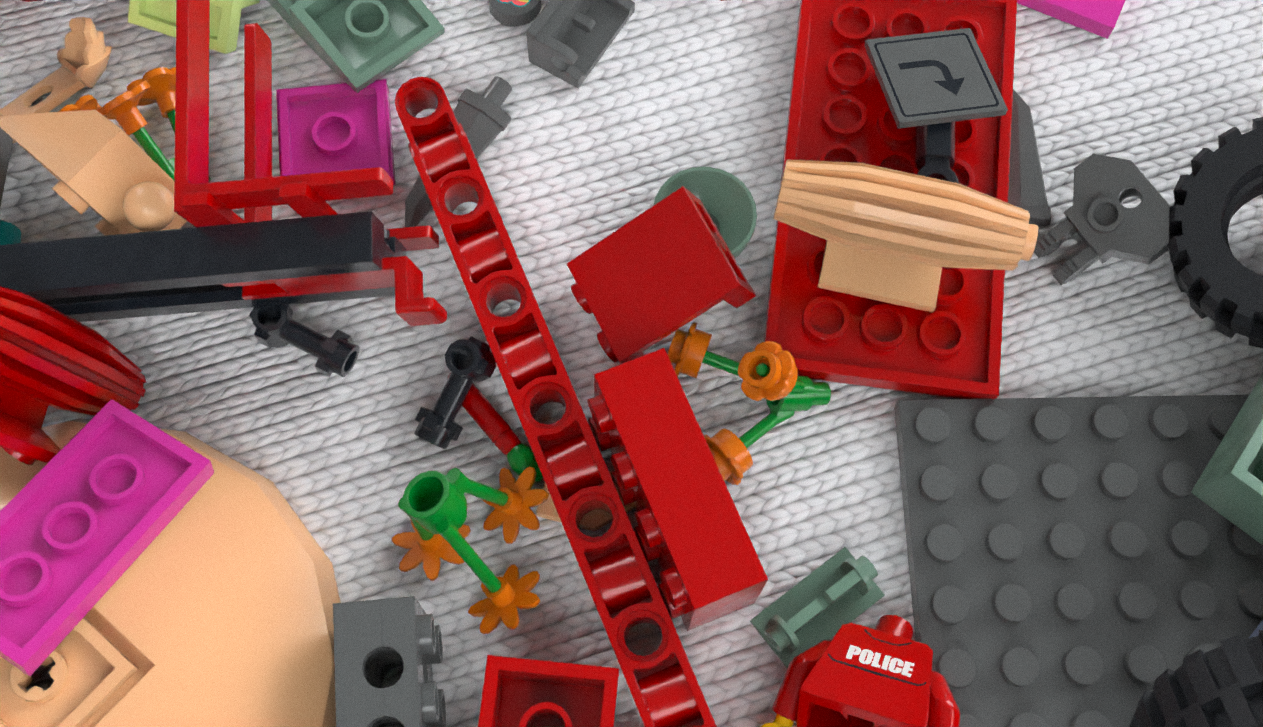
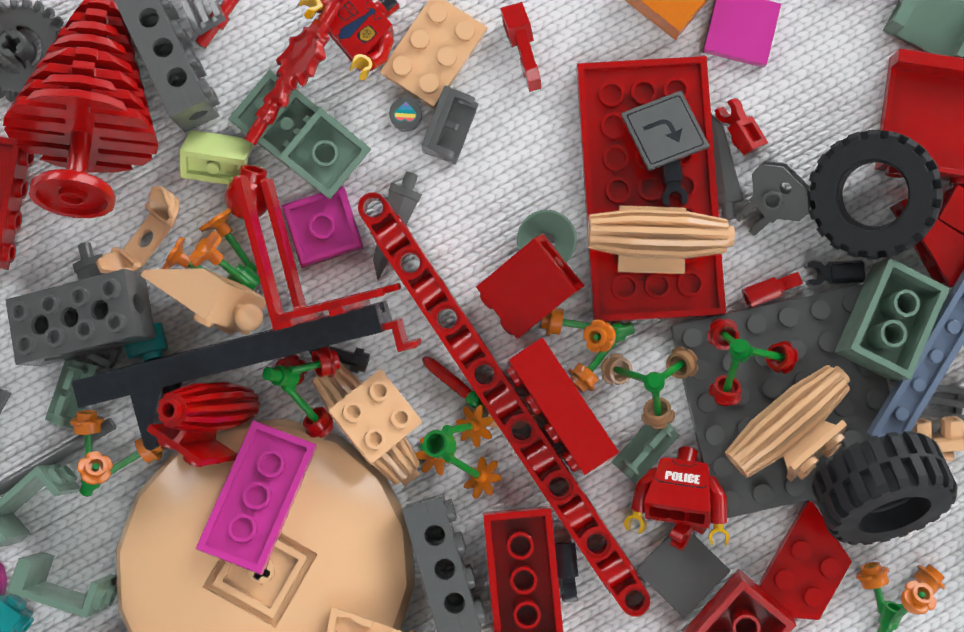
camera: 10 degrees left, 15 degrees up
(212, 346) = (290, 373): none -> plant
(227, 55) = (254, 176): none -> red piece
(330, 447) = (374, 420): none -> light nougat plate
(468, 362) = (432, 356): black bar -> none
(850, 531) = (656, 410): none -> medium nougat plant
(996, 422) = (725, 336): none -> red plant
(1066, 118) = (743, 129): none -> red plate
(1082, 372) = (769, 289): none -> red bar
(1106, 611) = (794, 427): none -> light nougat plate
(1201, 367) = (837, 272): none -> black bar

